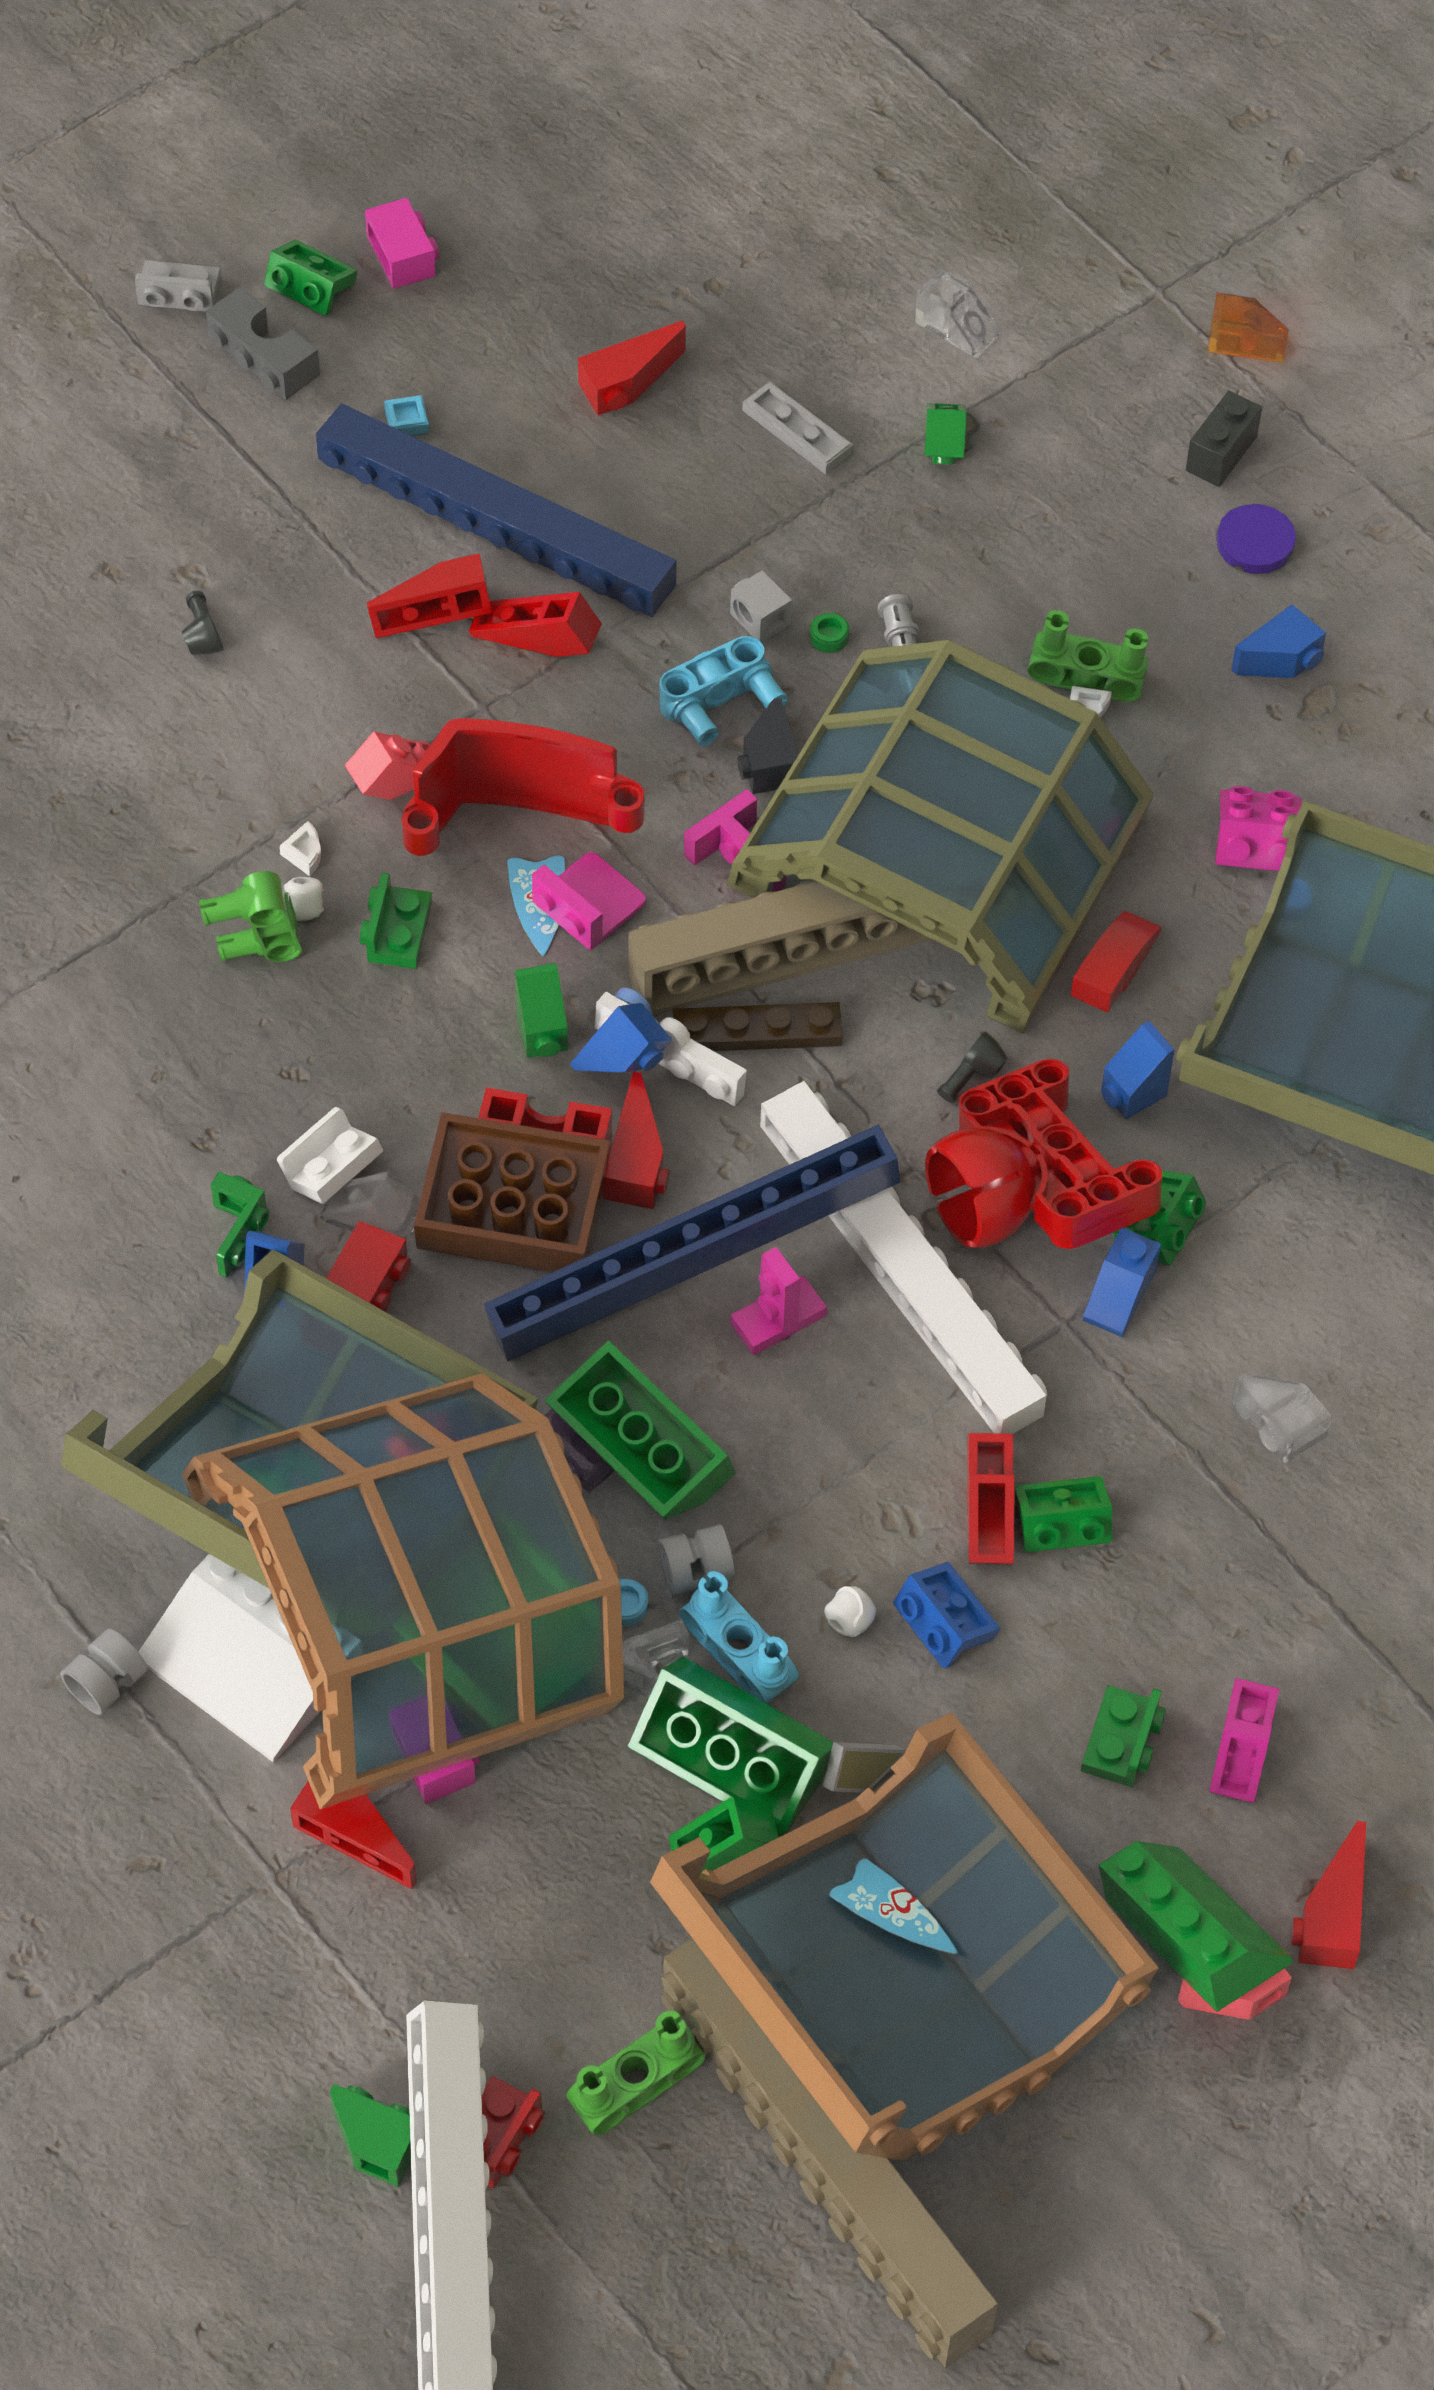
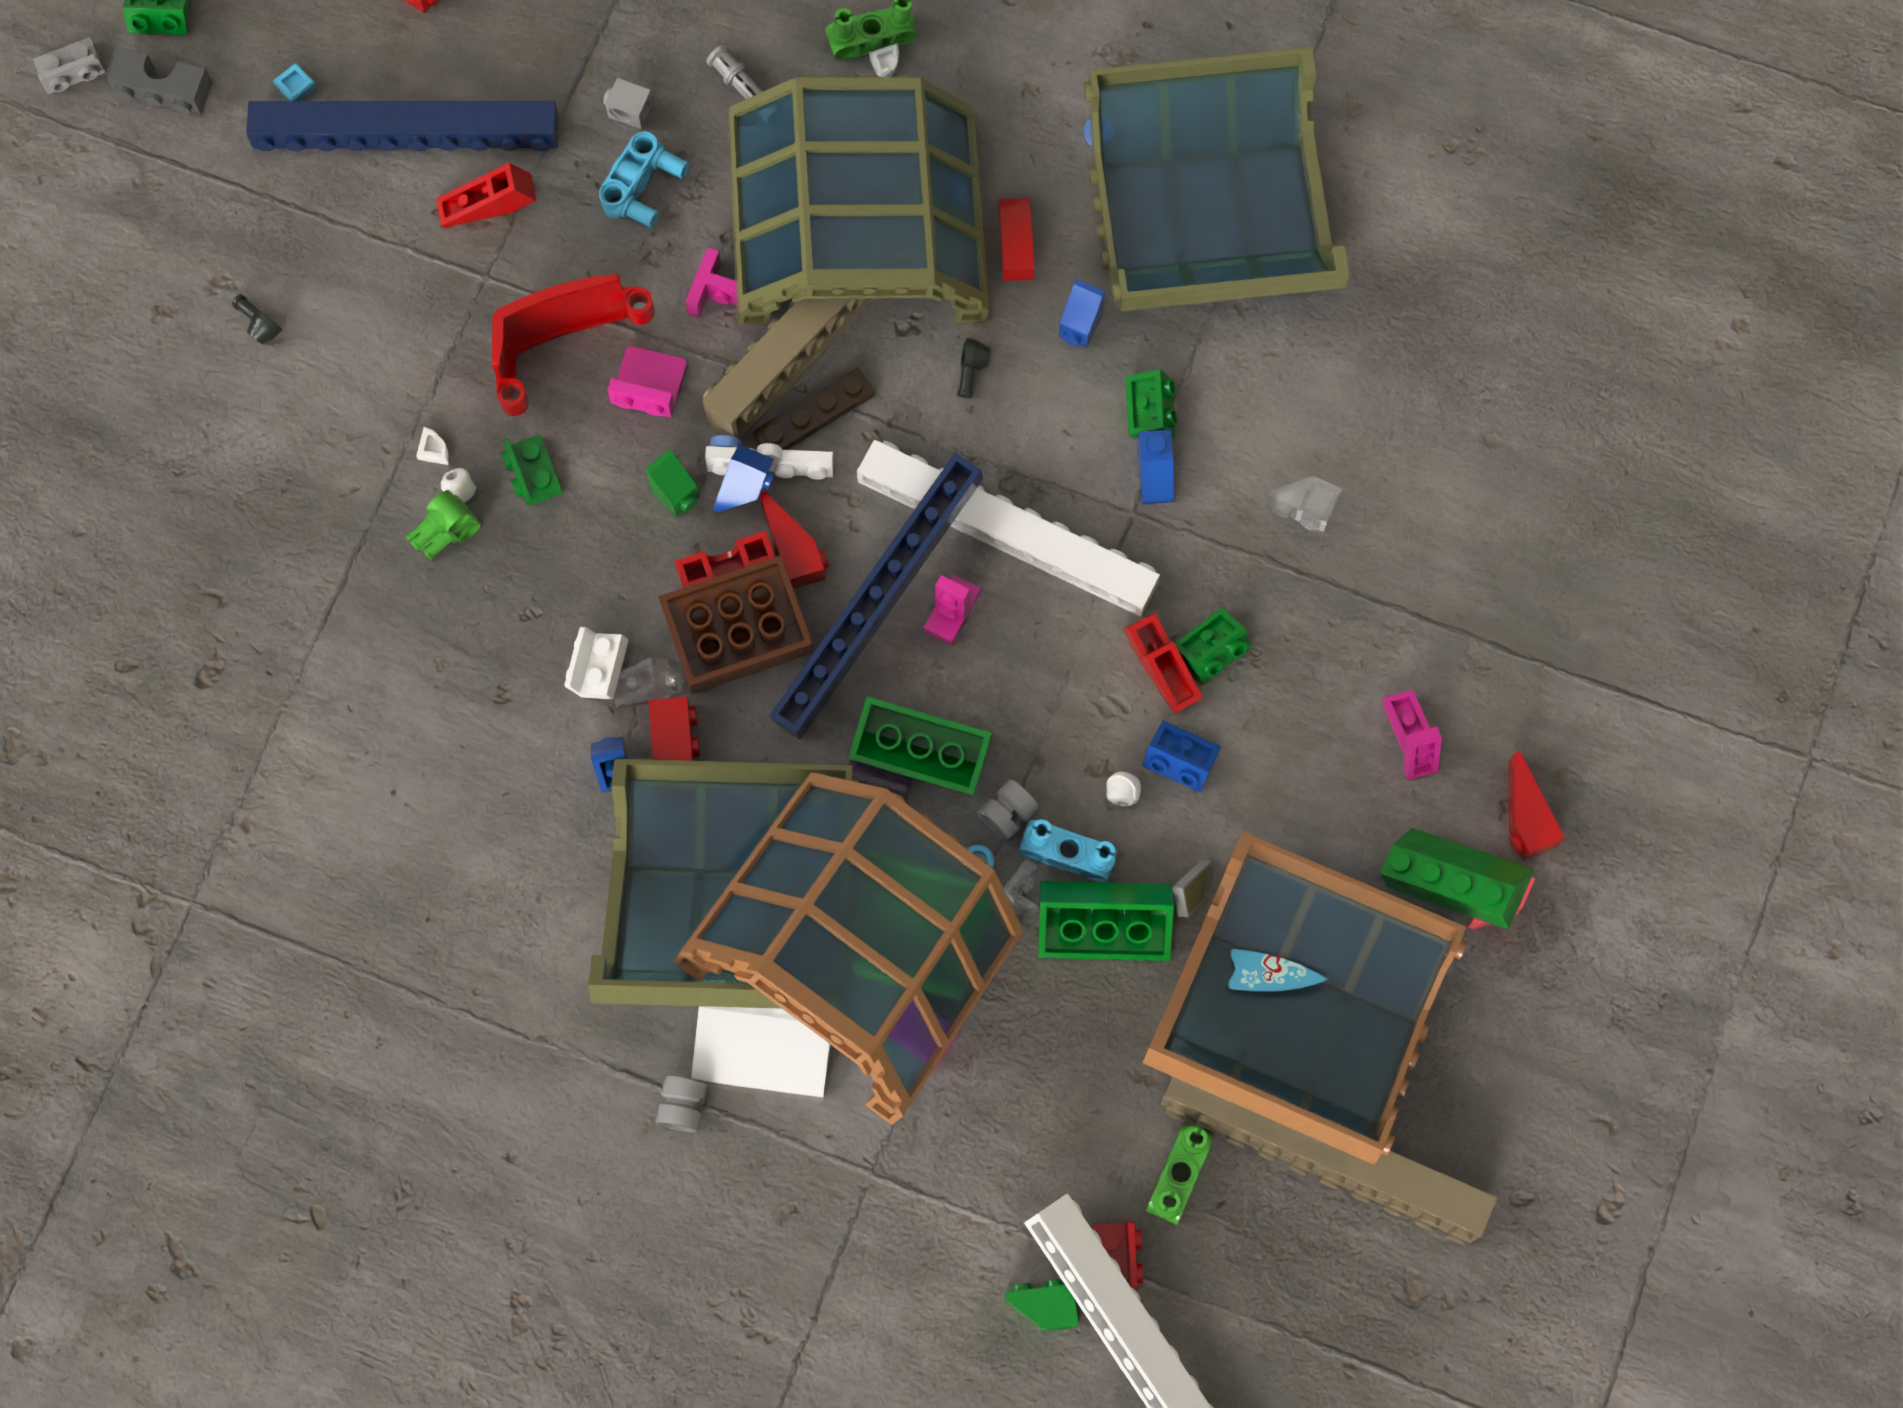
camera: 30 degrees left, 15 degrees up
(246, 1202) = (556, 725): green bracket -> none
(356, 1831) = (918, 1118): red slope -> none
(386, 765) = (457, 355): coral slope -> none
(434, 597) = (406, 212): red slope -> none
(535, 922) = (595, 389): medium azure sticker -> none
(729, 1830) = (1138, 986): green slope -> none
(768, 750) = (703, 209): black slope -> none
(829, 632) = (684, 97): green tile -> none
(1027, 1156) = (1052, 431): red beam -> none
(1121, 1735) = (1336, 773): green bracket -> none
(1253, 827) = (1051, 93): dark pink bracket -> none

